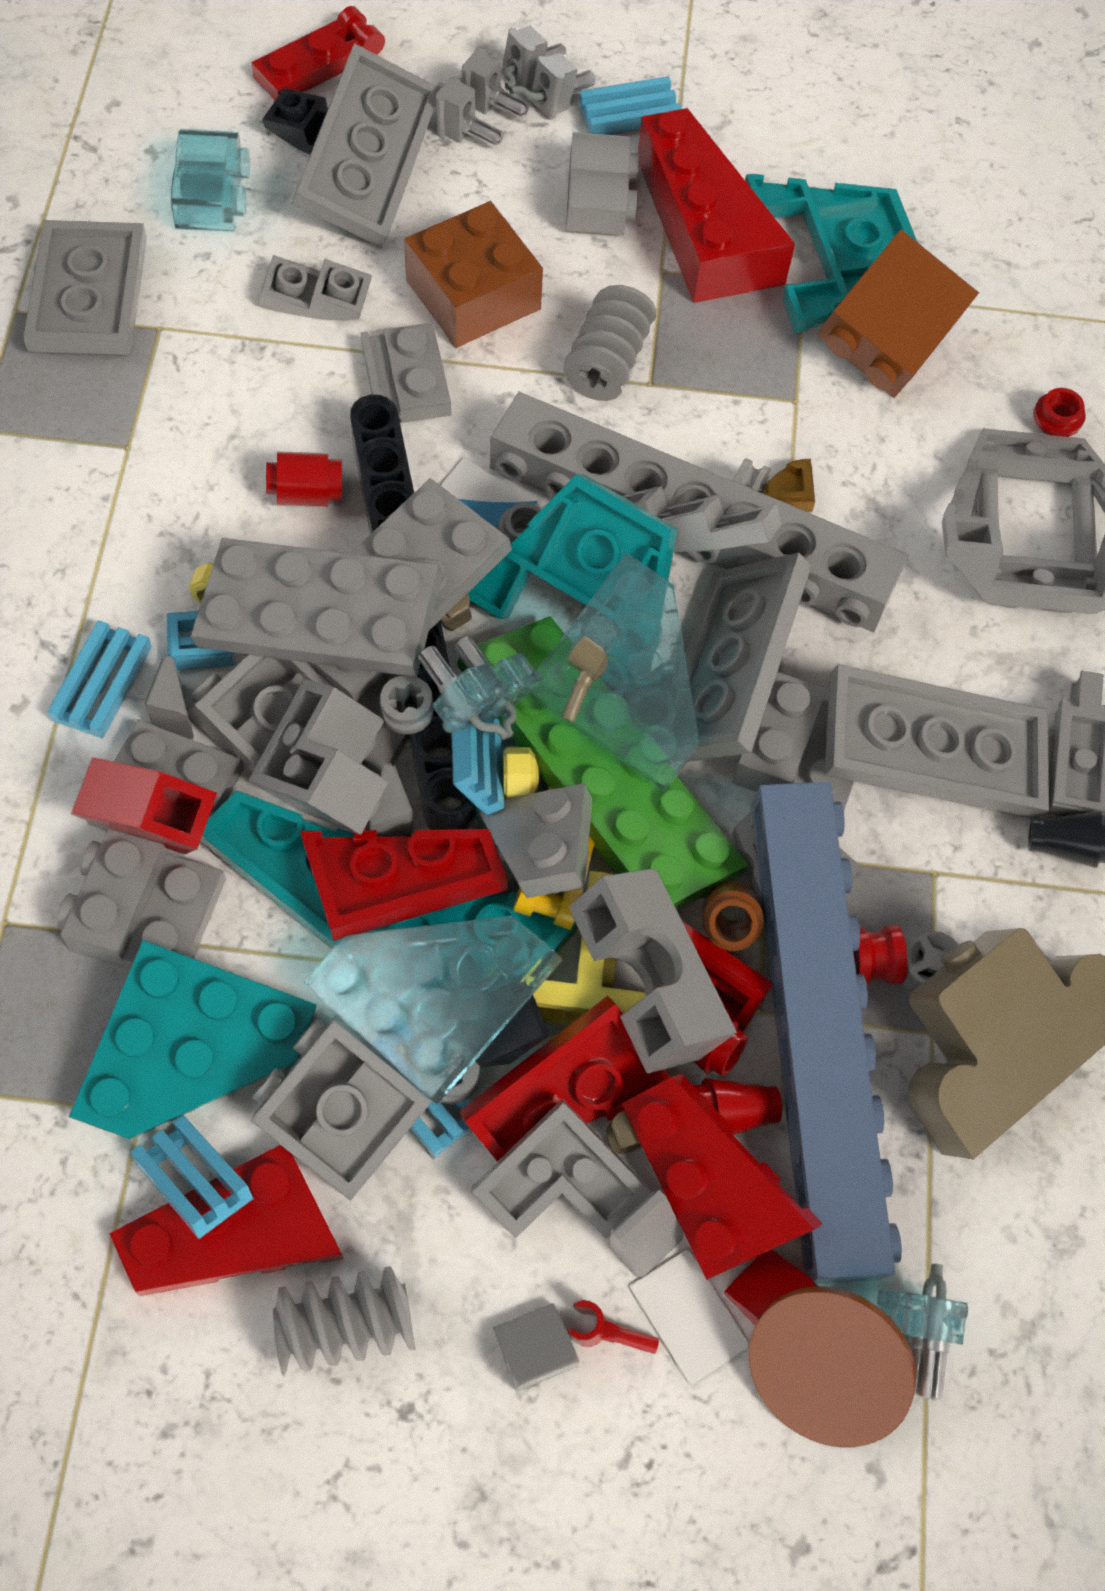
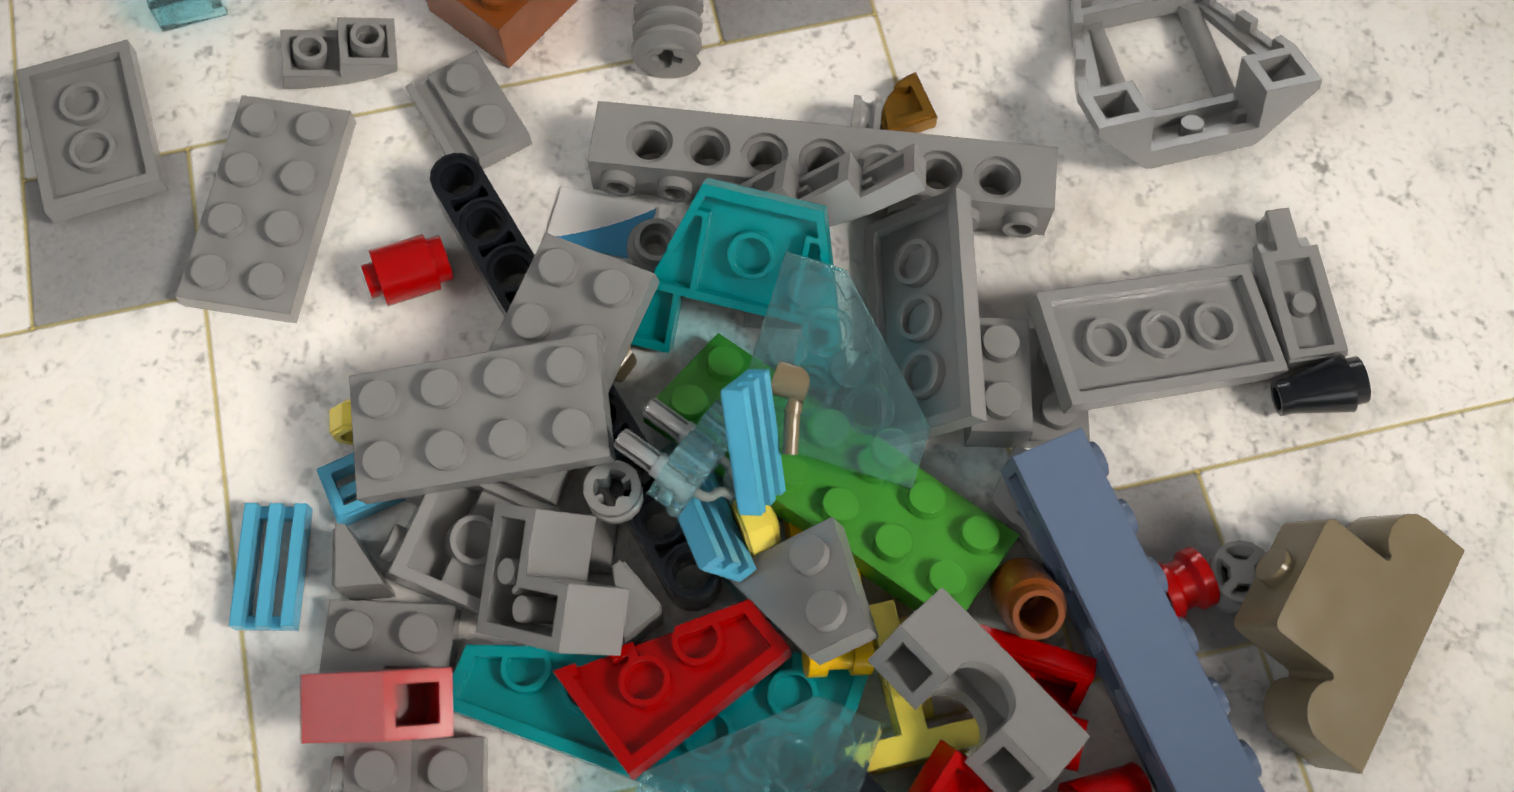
camera: 15 degrees left, 5 degrees up
(207, 396) = (267, 209): none -> light grey plate
(538, 695) = (753, 441): none -> medium azure tile

